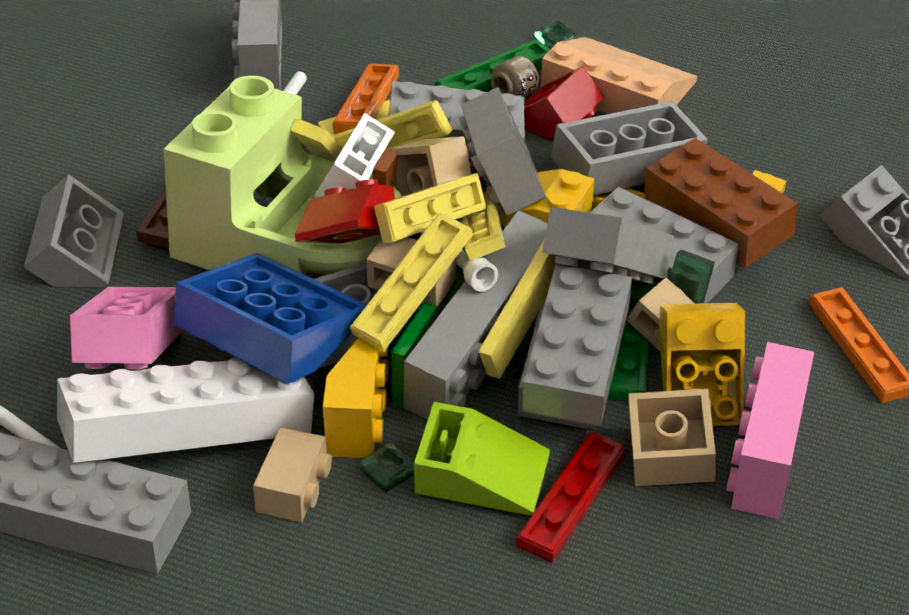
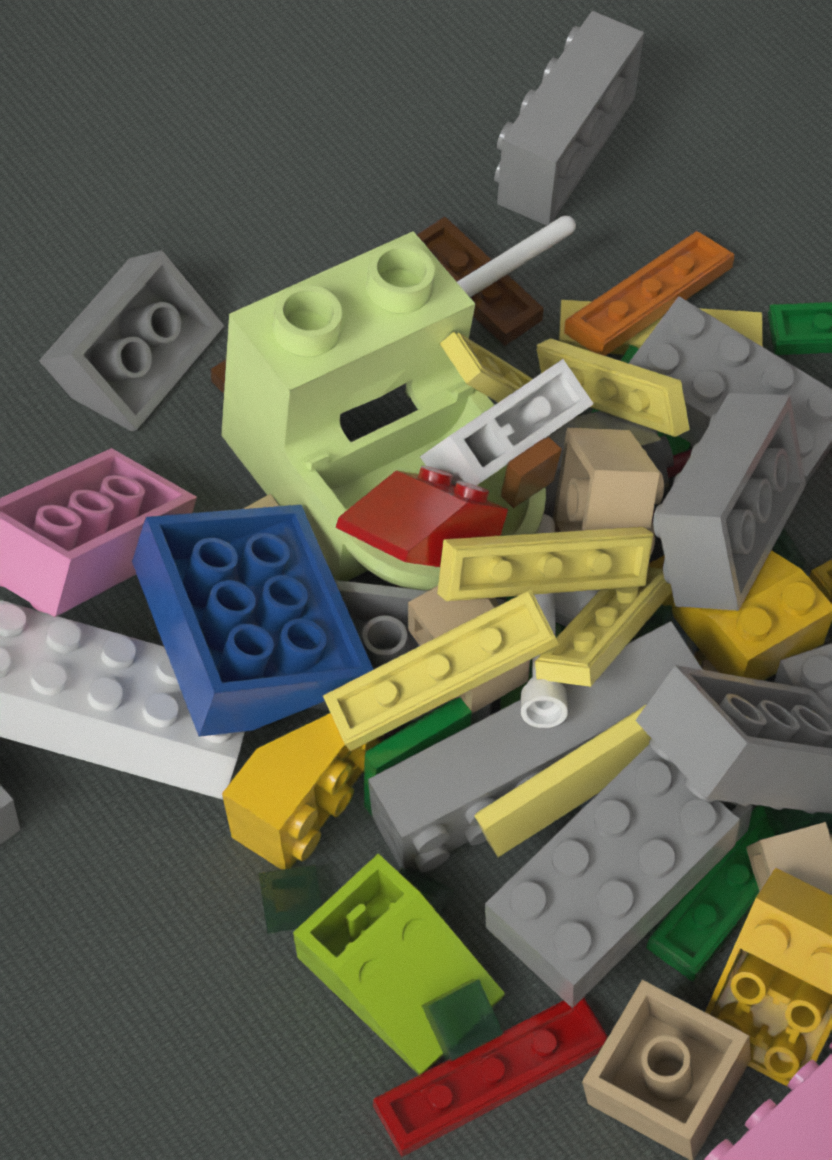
camera: 30 degrees right, 15 degrees up
(291, 475) = (159, 849): tan brick -> none
(538, 470) = (462, 1019): none -> clear green tile

